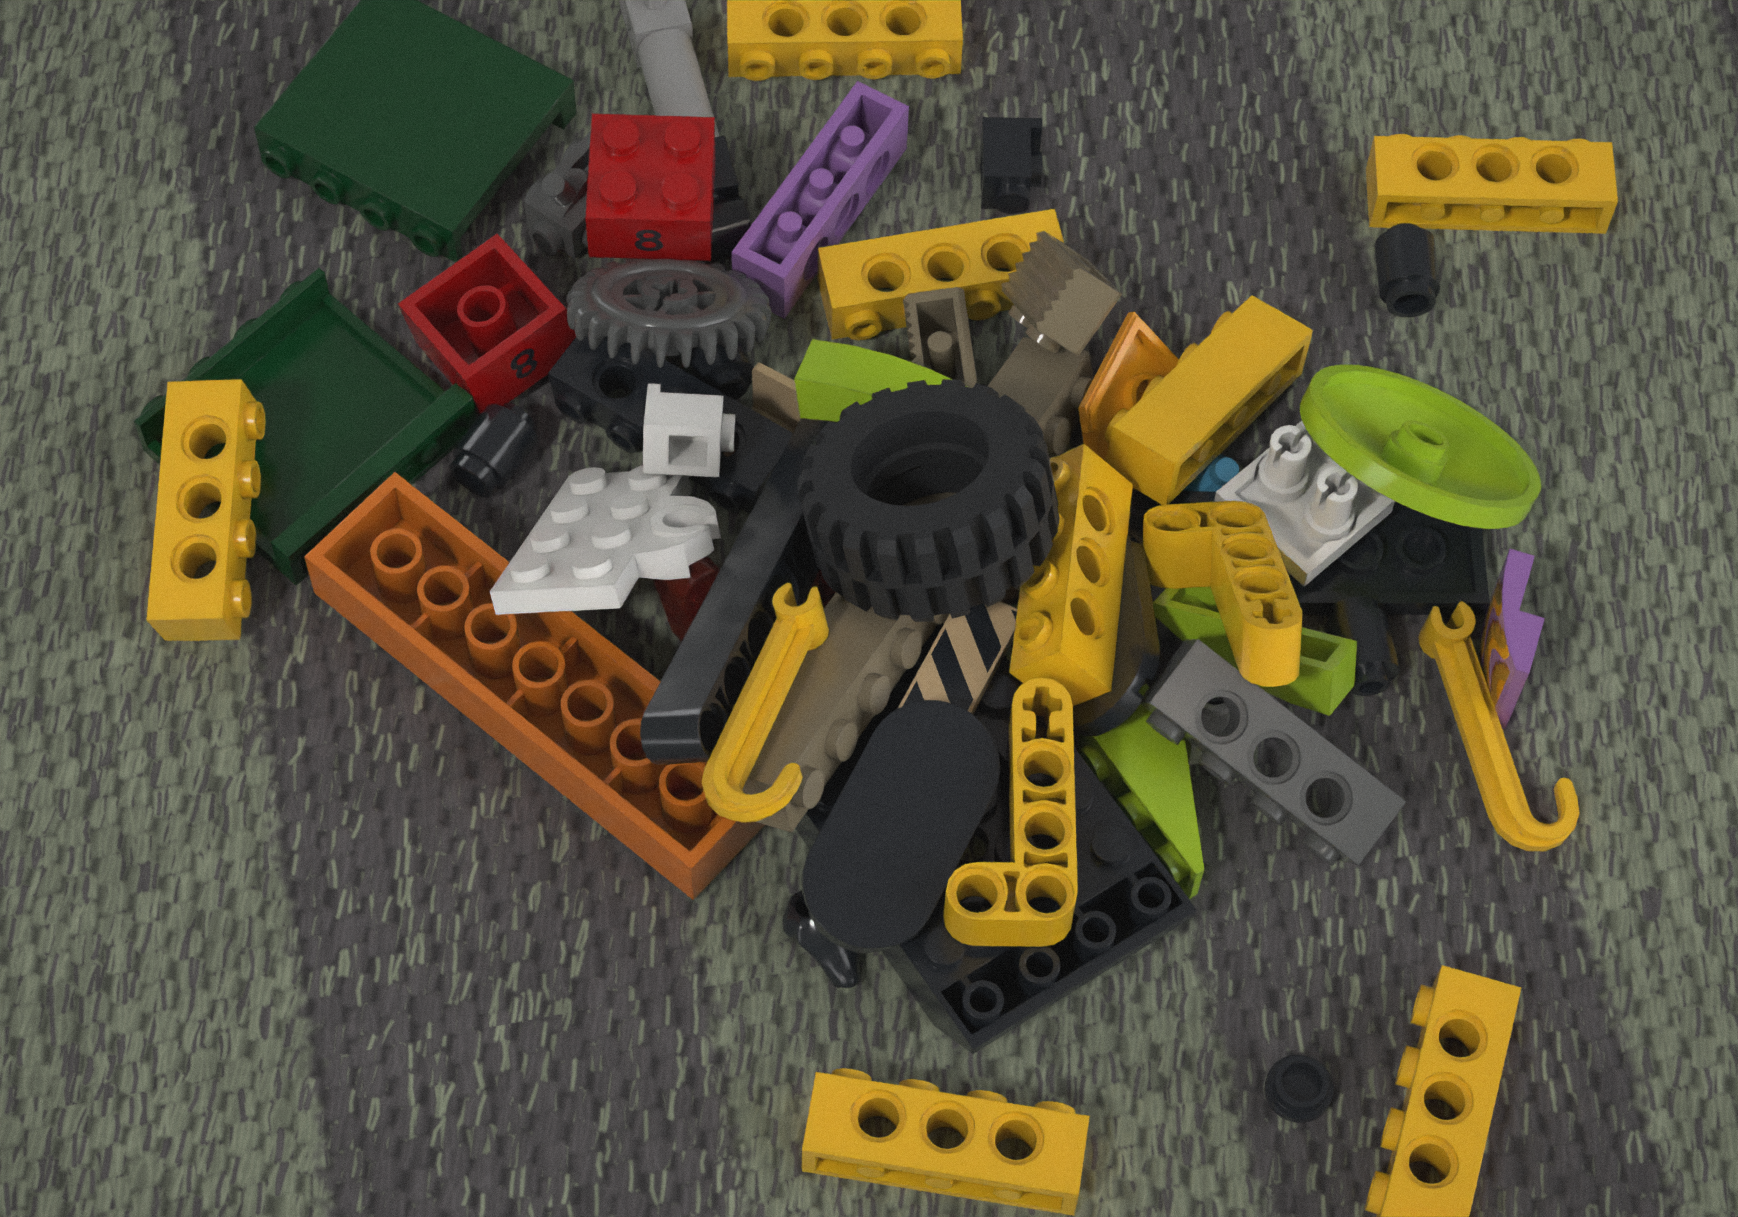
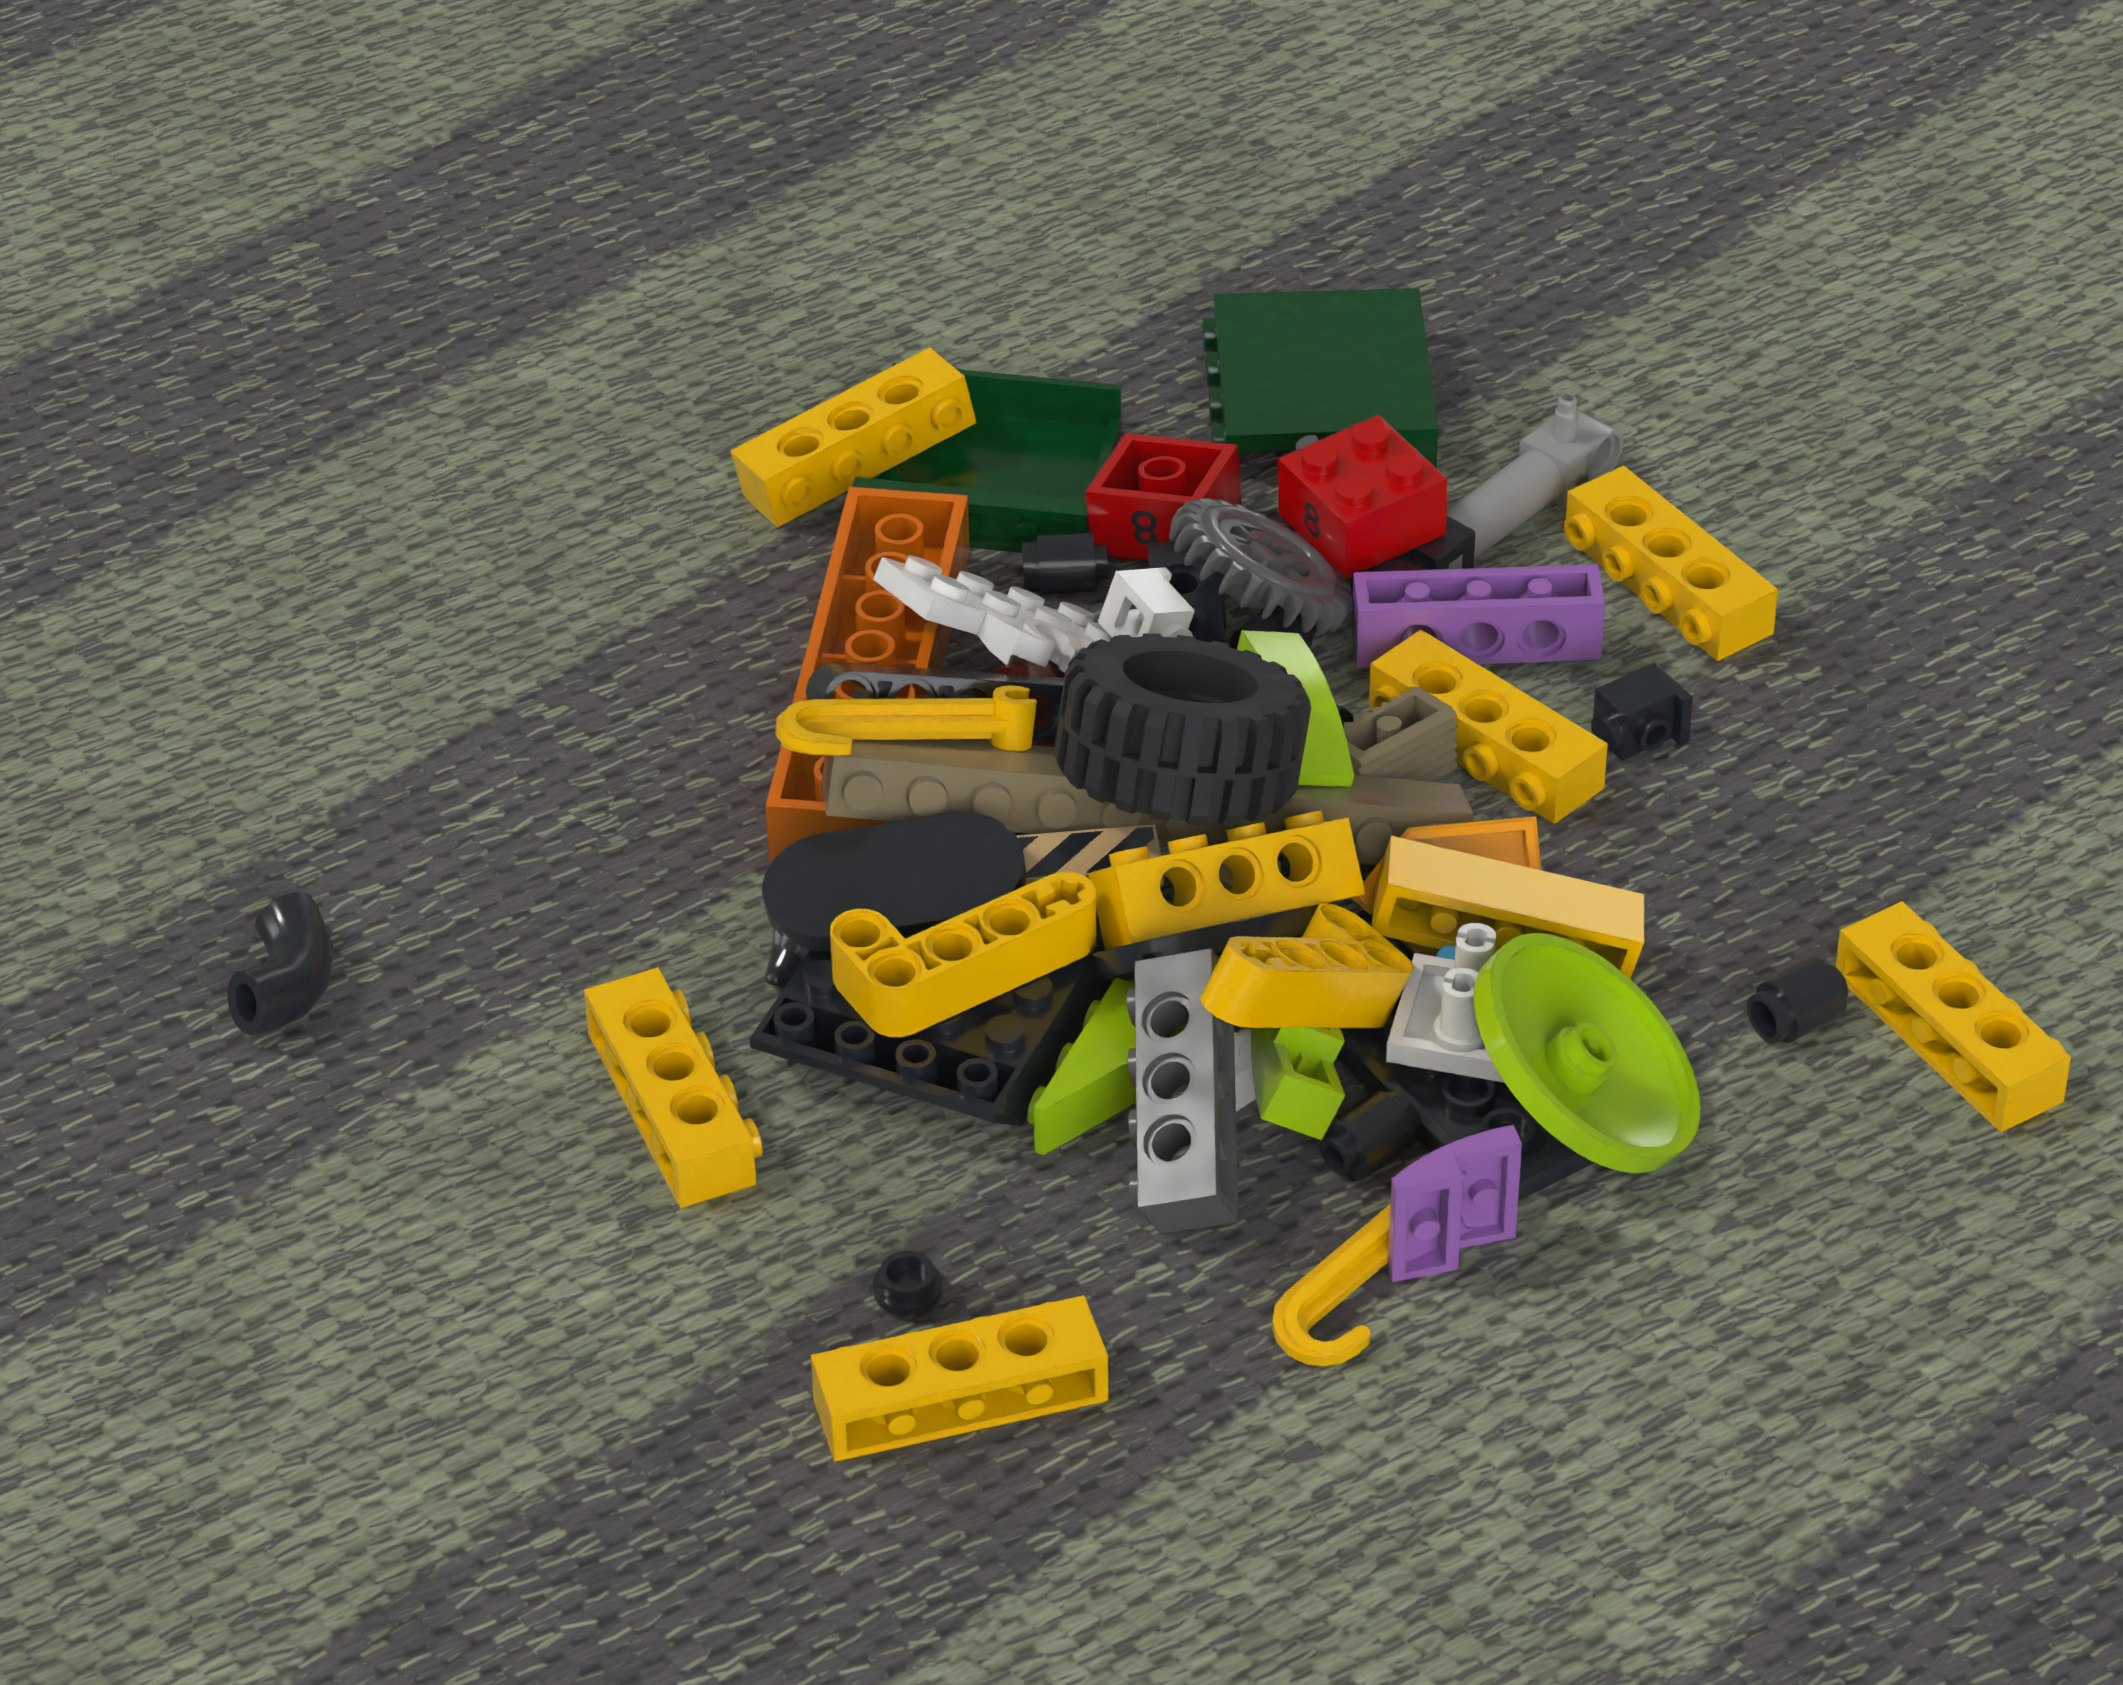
camera: 60 degrees right, 20 degrees down
(1059, 295) = (1503, 762): dark tan brick -> none

